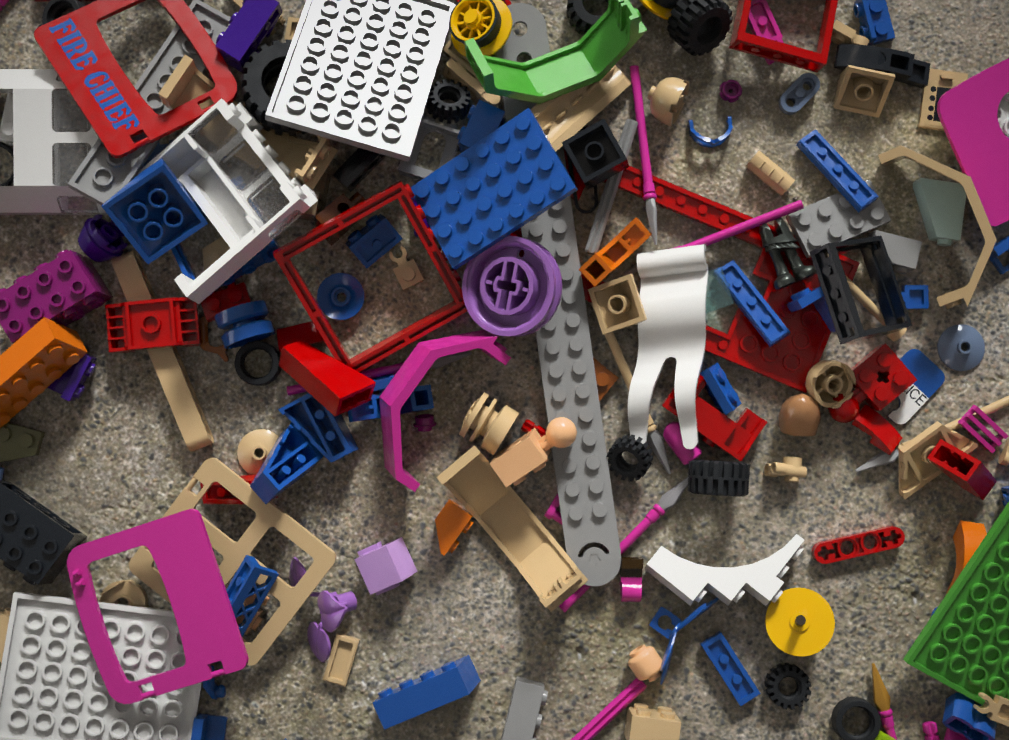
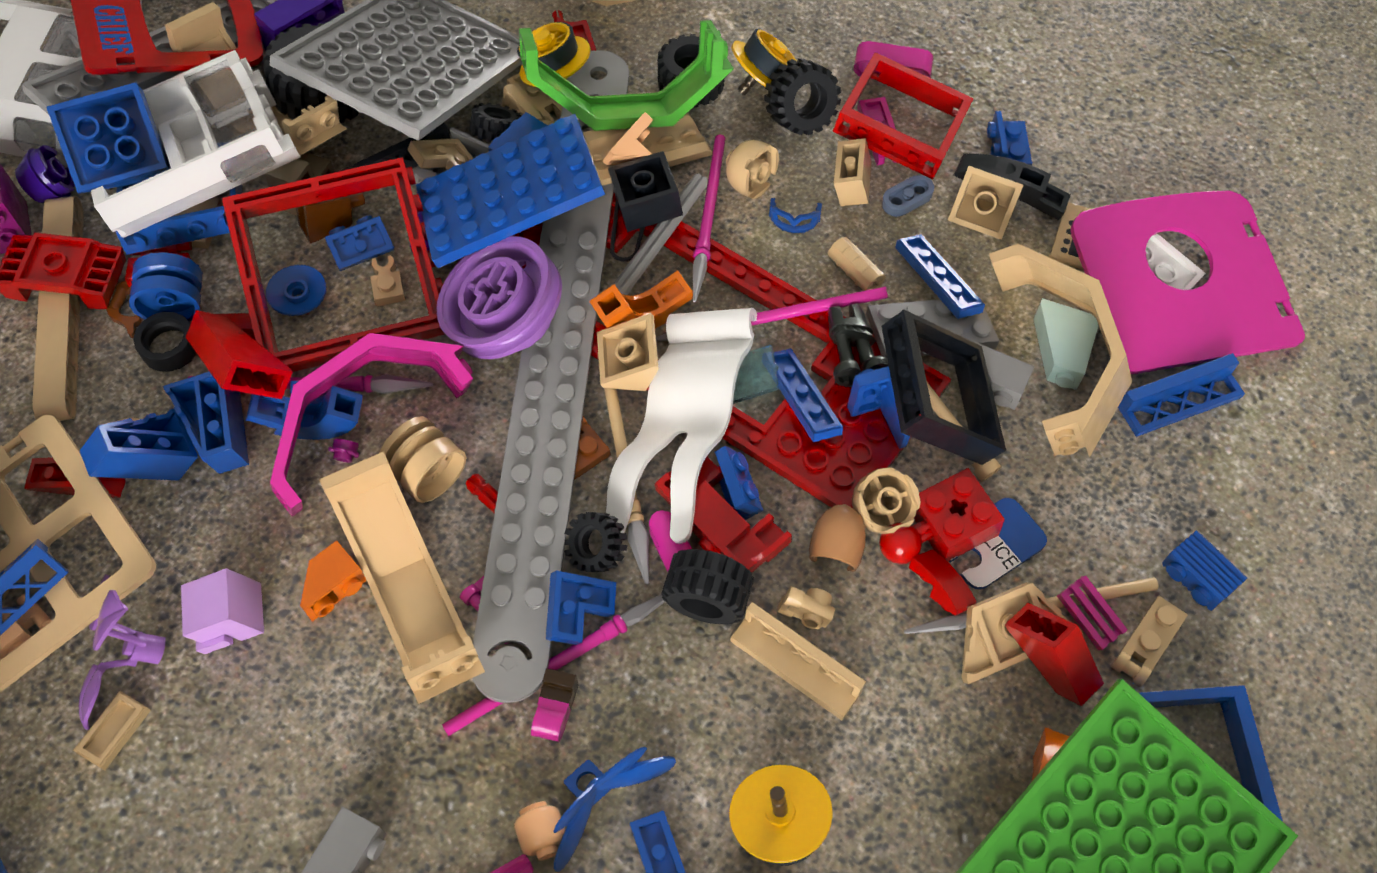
camera: 15 degrees right, 25 degrees down
(426, 692) = (209, 795): blue wedge -> none
(429, 148) = (439, 153): none -> tan plate
(532, 451) = (460, 500): light nougat brick -> none
(571, 117) = (630, 145): none -> light nougat slope
(623, 507) = (572, 597): none -> blue plate
(726, 583) = (688, 734): white arch -> none
(734, 86) = (825, 178): magenta plate -> none
(752, 85) = (852, 172): none -> tan brick
(788, 511) = (798, 661): none -> tan fence
(845, 35) = (969, 143): tan plate -> none
(858, 547) = (891, 739): red beam -> none
(915, 296) = (1019, 434): blue plate -> none
(950, 347) = (1069, 521): sand blue dish -> none

